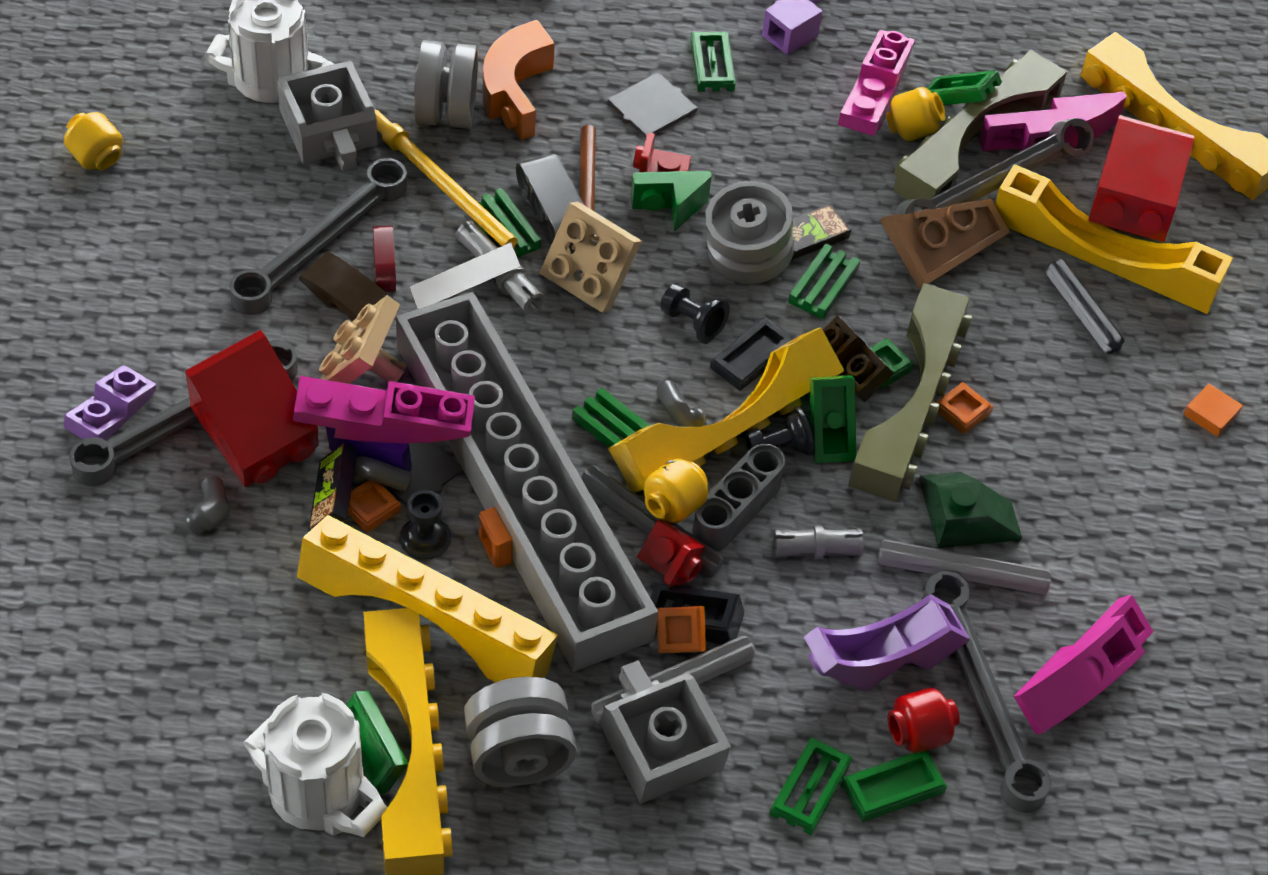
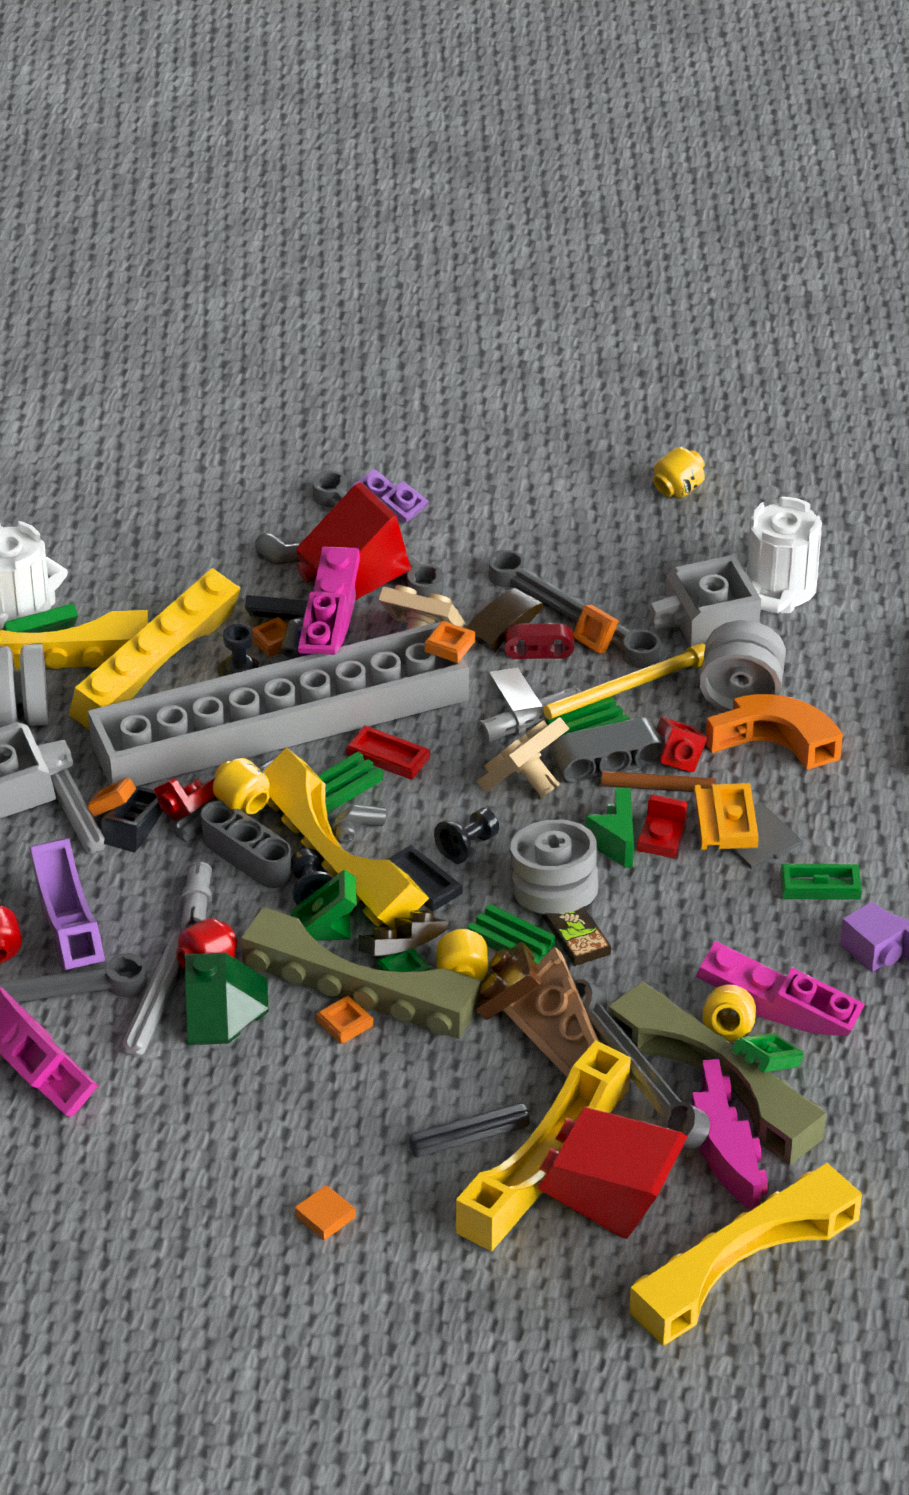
camera: 100 degrees right, 10 degrees down
(363, 211) = (595, 629): none -> orange tile
(440, 303) = (449, 641): none -> orange tile
(537, 142) = (682, 744): none -> red bracket
(565, 387) = (389, 752): none -> red tile
(648, 111) = (726, 816): none -> light orange plate
(880, 306) = (463, 953): none -> yellow head
(906, 263) = (509, 979): none -> reddish brown wing
(906, 517) = (206, 937): none -> red head

